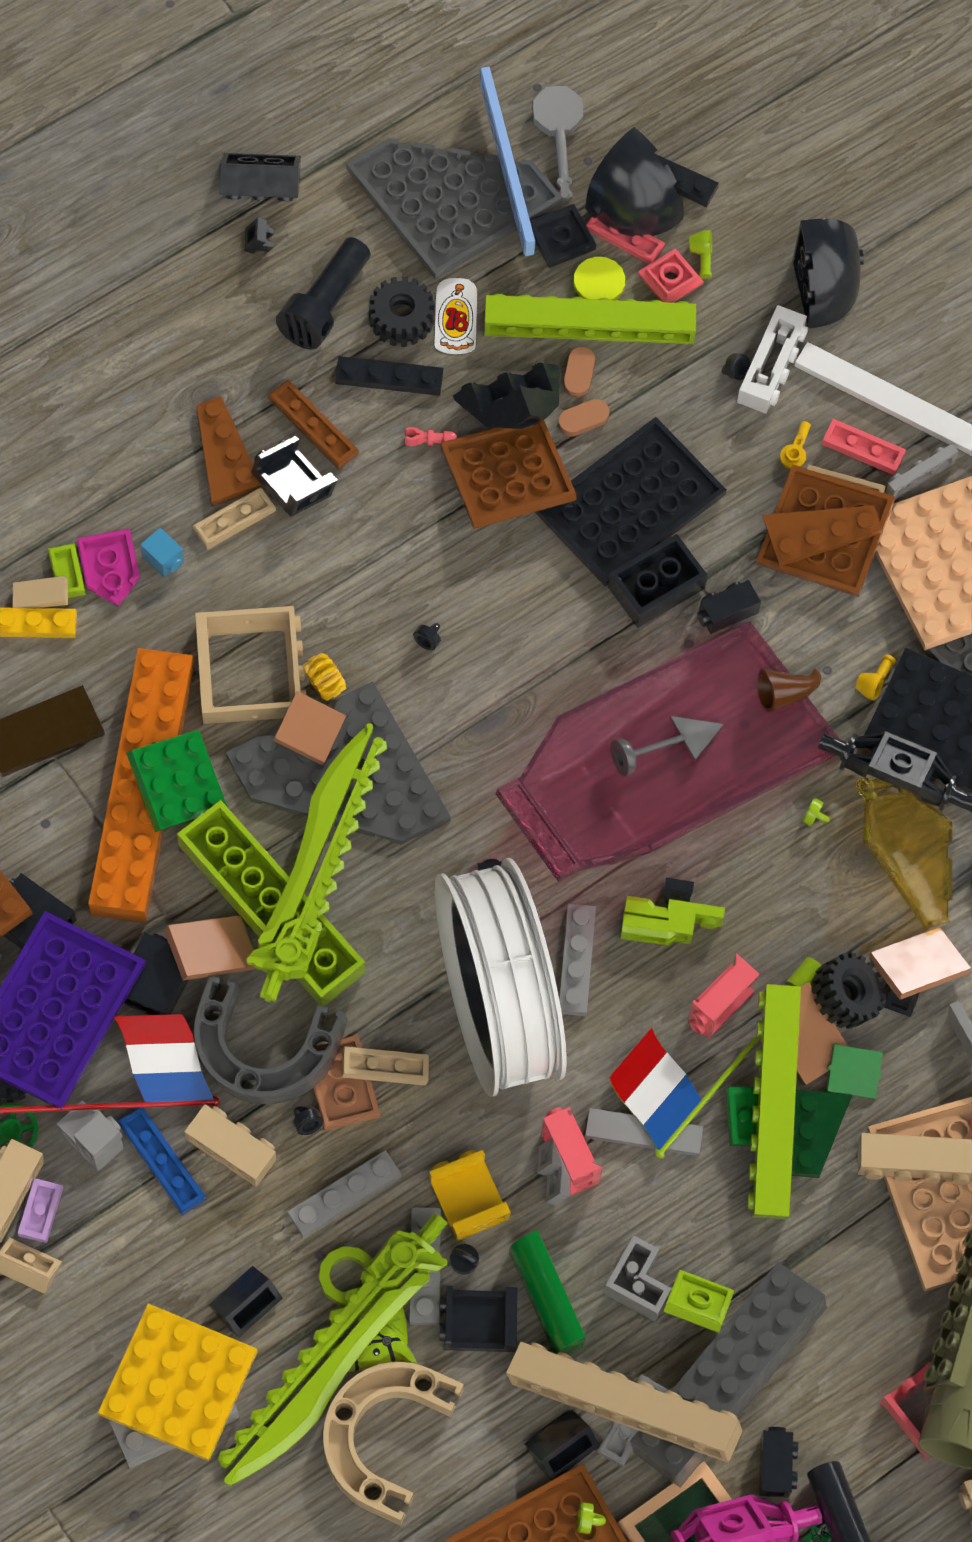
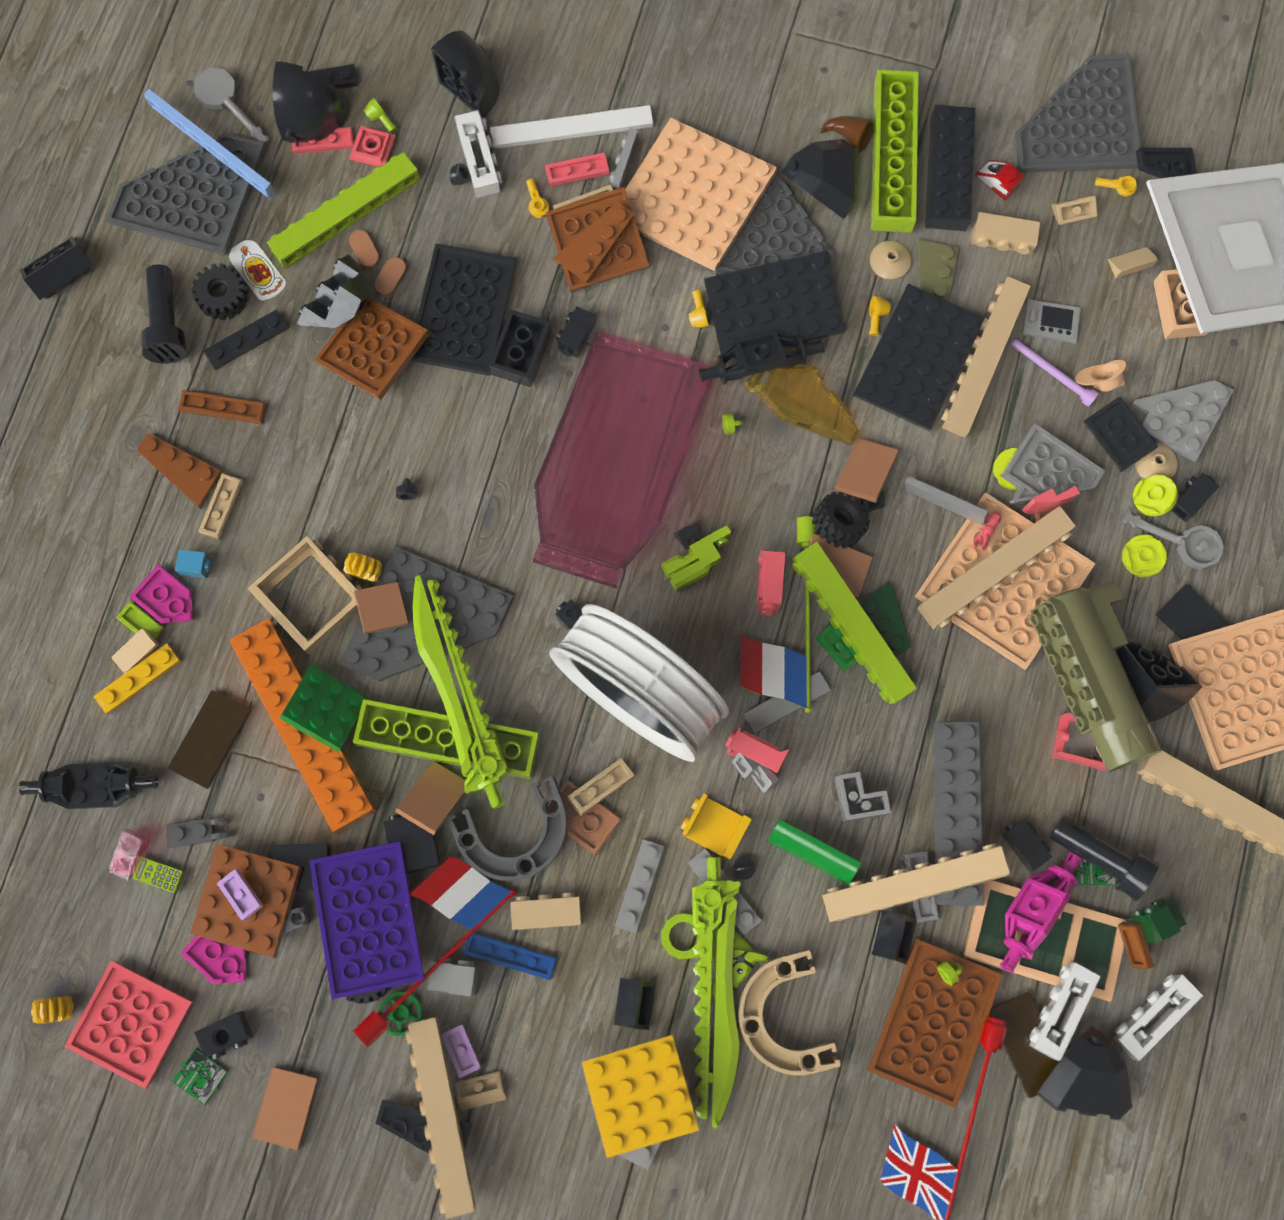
camera: 35 degrees left, 10 degrees up
(256, 236) = (85, 309): black tile -> none
(291, 477) = (237, 452): panel -> none
(307, 1120) = (581, 859): black tile -> none
(420, 437) = (303, 361): coral piece -> none
(479, 1320) = (784, 899): black panel -> none
(562, 235) = (283, 168): black plate -> none
(577, 959) = (659, 622): light grey plate -> none
(599, 279) = (329, 180): neon yellow tile -> none
(692, 732) = (618, 428): dark grey piece -> none
(699, 1301) = (905, 782): lime tile -> none
(784, 689) = (651, 361): reddish brown hat -> none
(854, 1071) = (880, 567): green piece -> none

